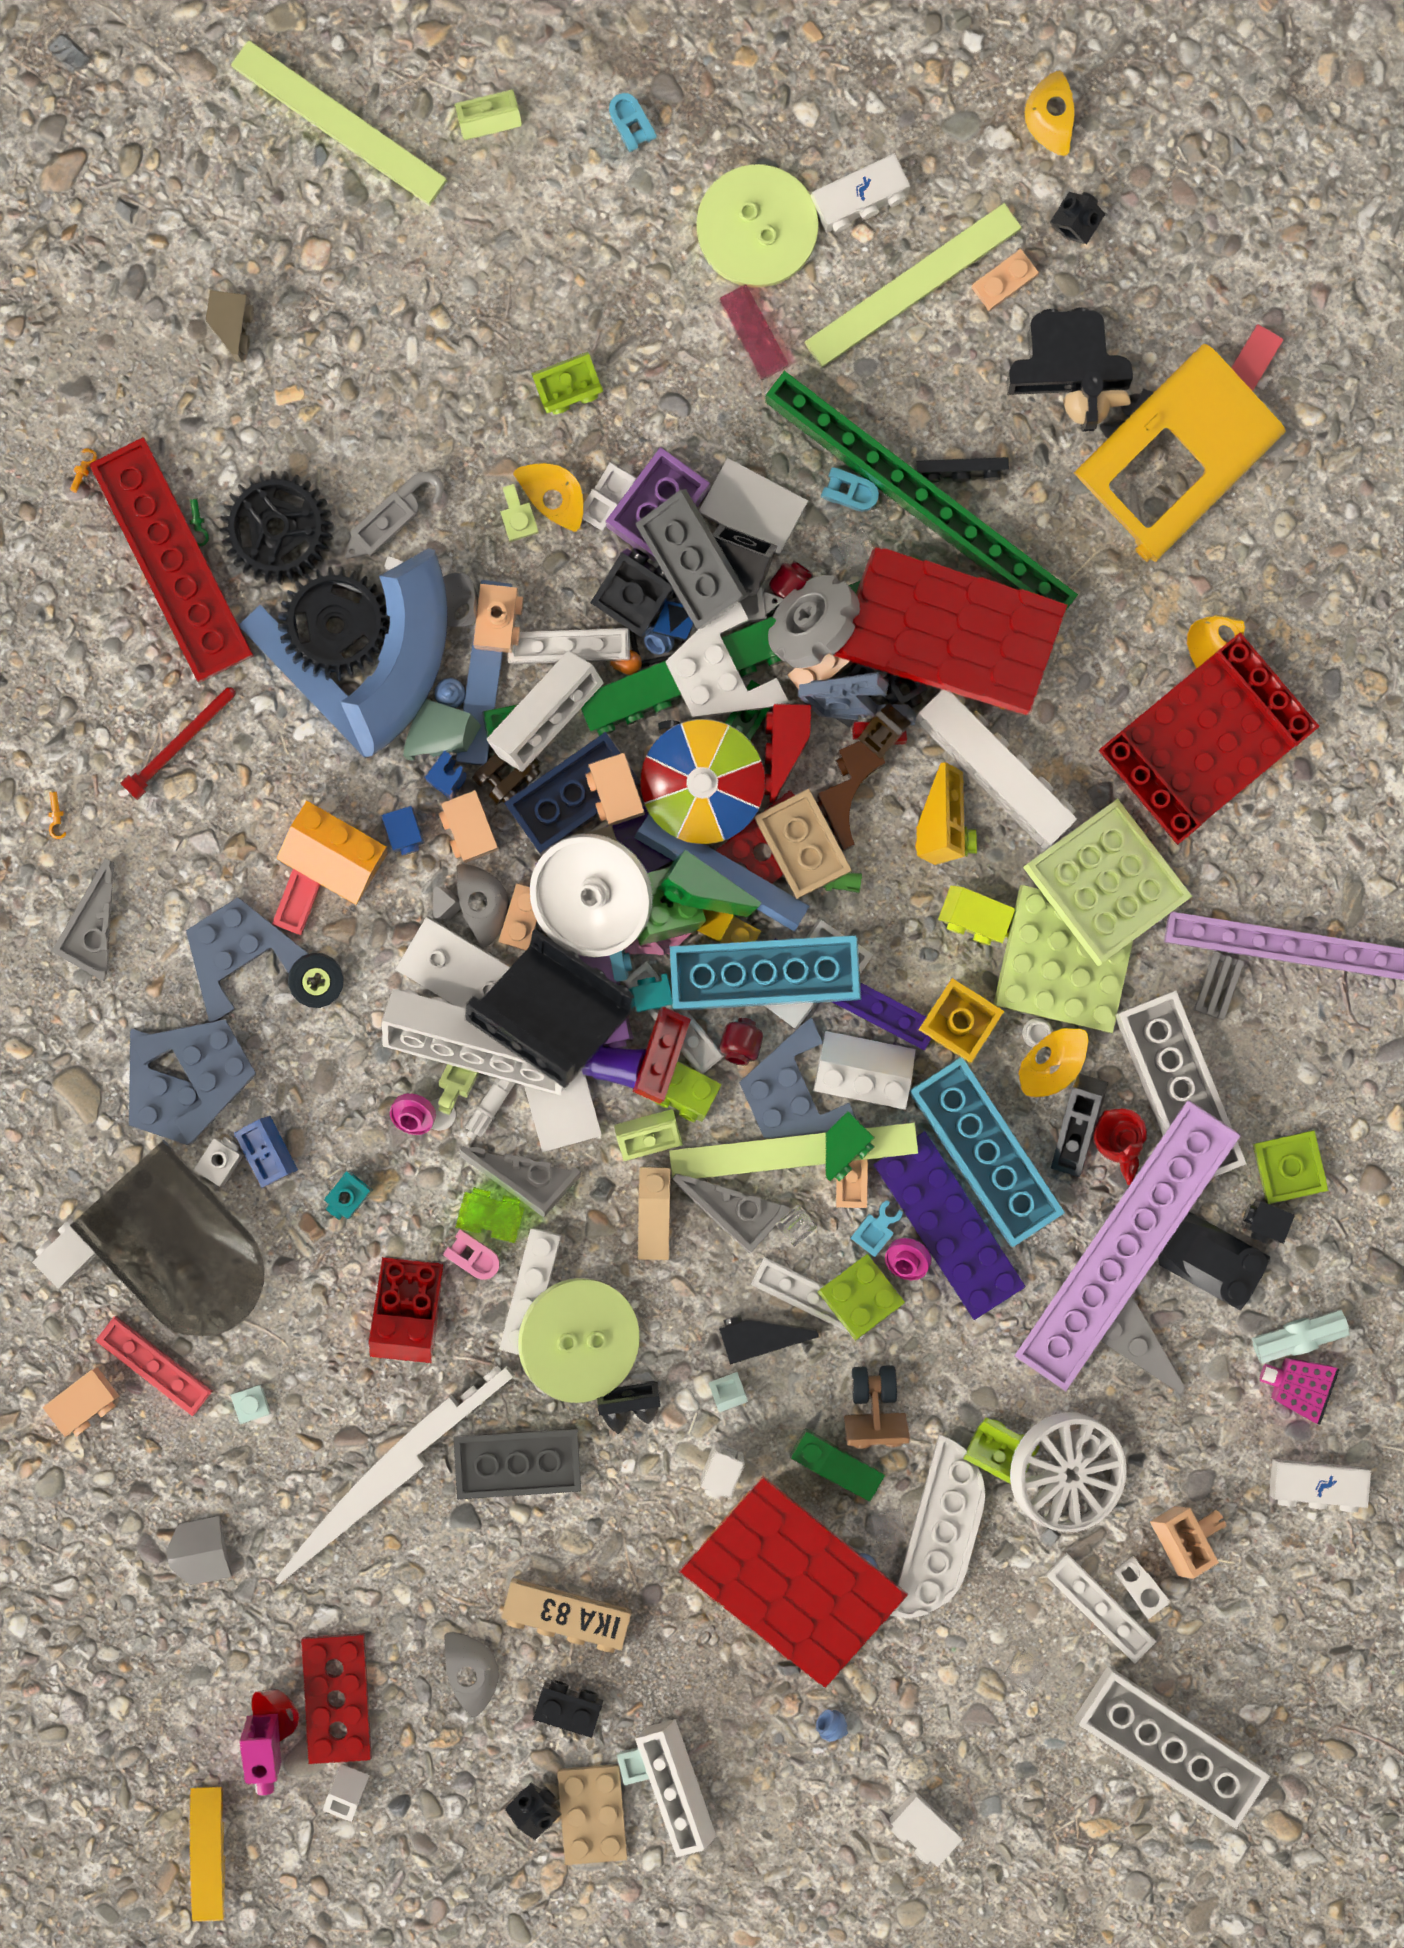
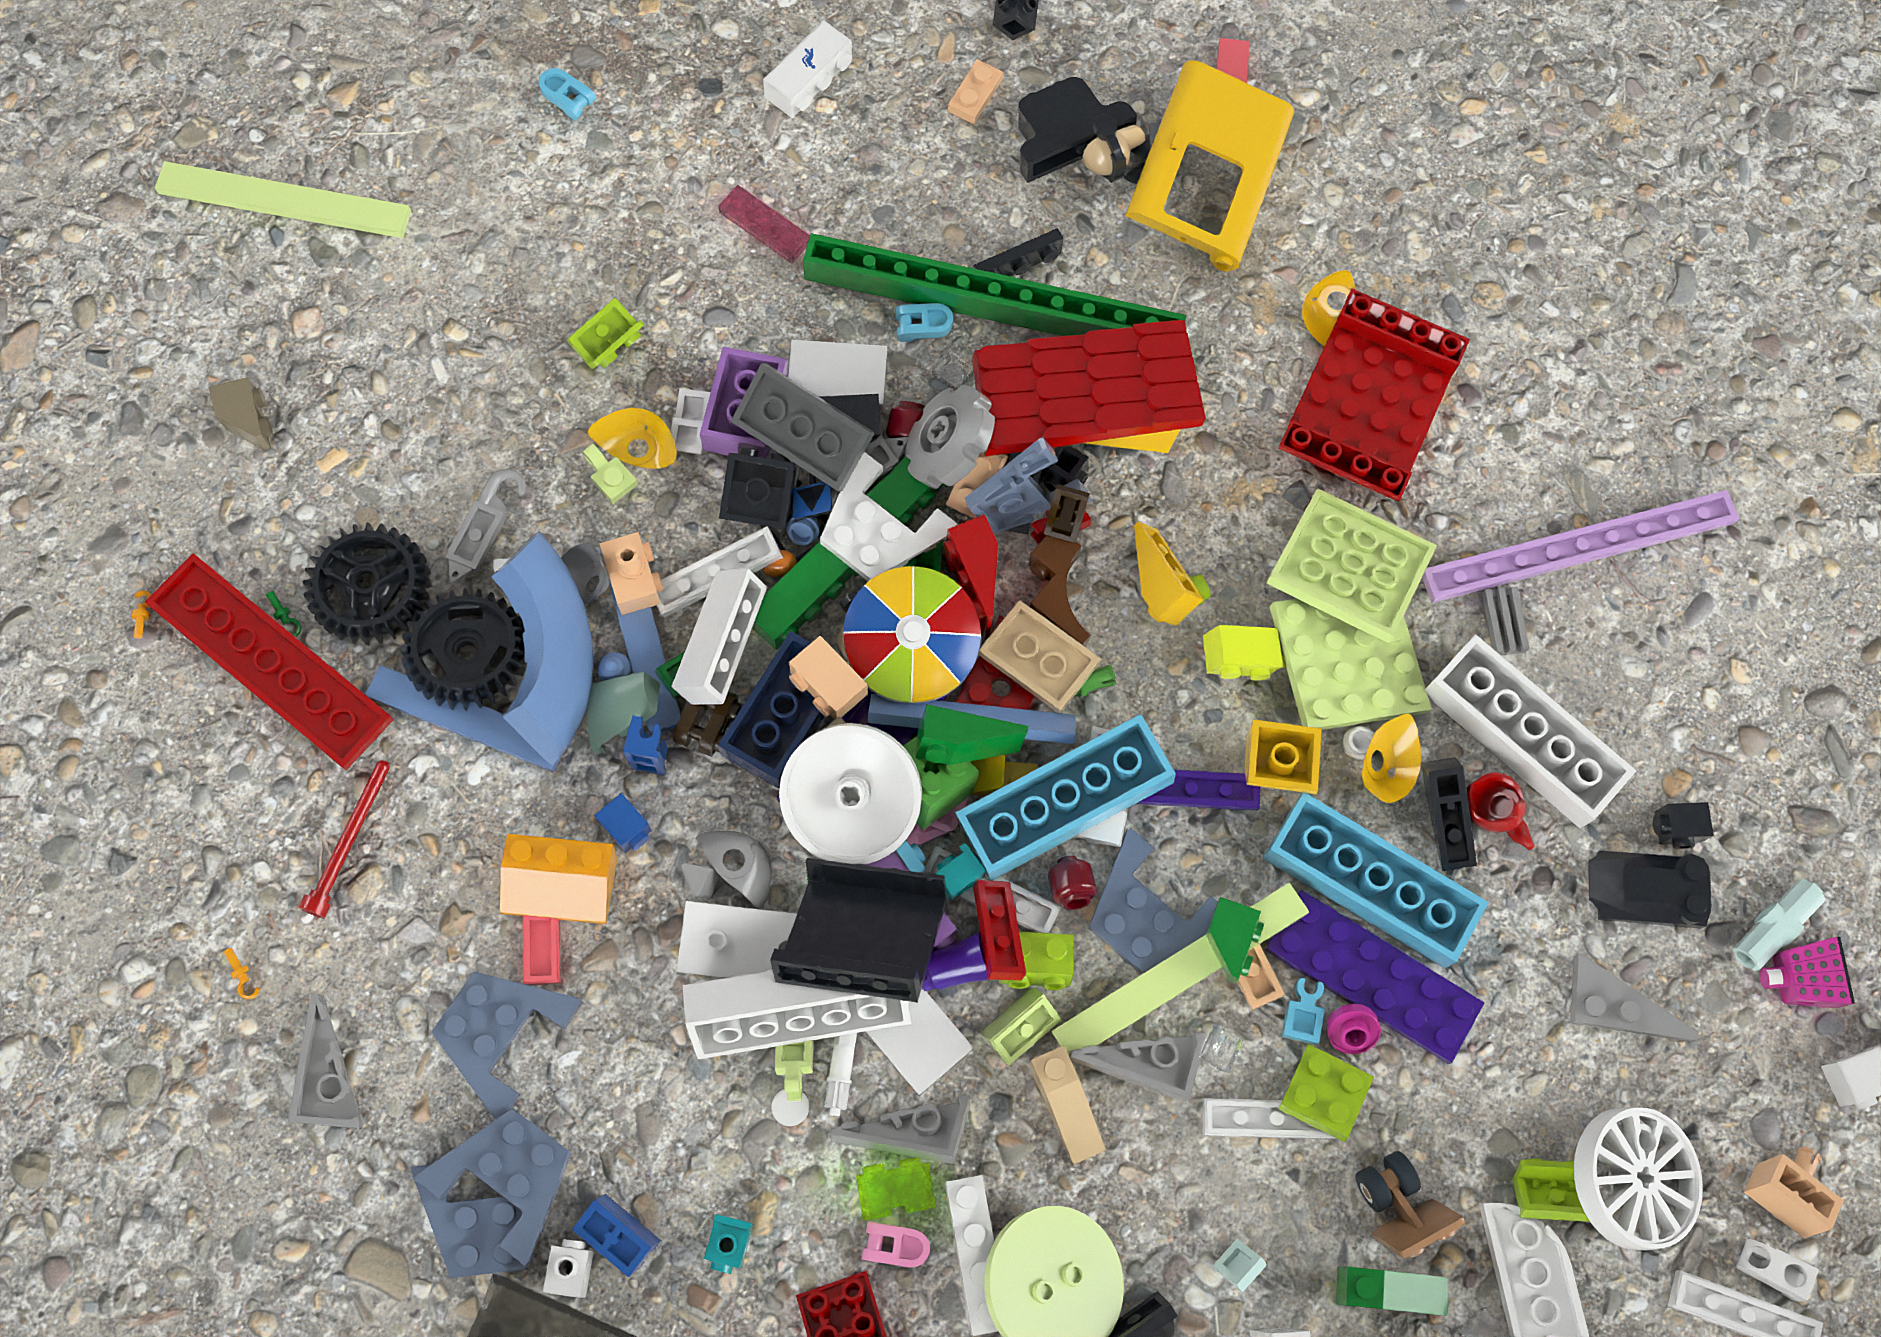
camera: 30 degrees left, 15 degrees down
(324, 993) = (609, 1033): black bush -> none
(412, 1114) = (761, 1117): dark pink plate -> none
(469, 827) = (691, 791): light nougat brick -> none
(488, 114) = (427, 139): yellowish green slope -> none
(519, 920) = (786, 862): light nougat plate -> none
(756, 1337) = (1238, 1191): black slope -> none
(757, 225) = (725, 134): yellowish green plate -> none
(865, 1070) = (1211, 857): white slope -> none
(913, 285) = (892, 129): yellowish green tile -> none
(996, 768) = (1191, 505): white brick -> none
(1127, 1245) = (1566, 910): lavender plate -> none
(1290, 1167) = (1672, 761): lime plate -> none

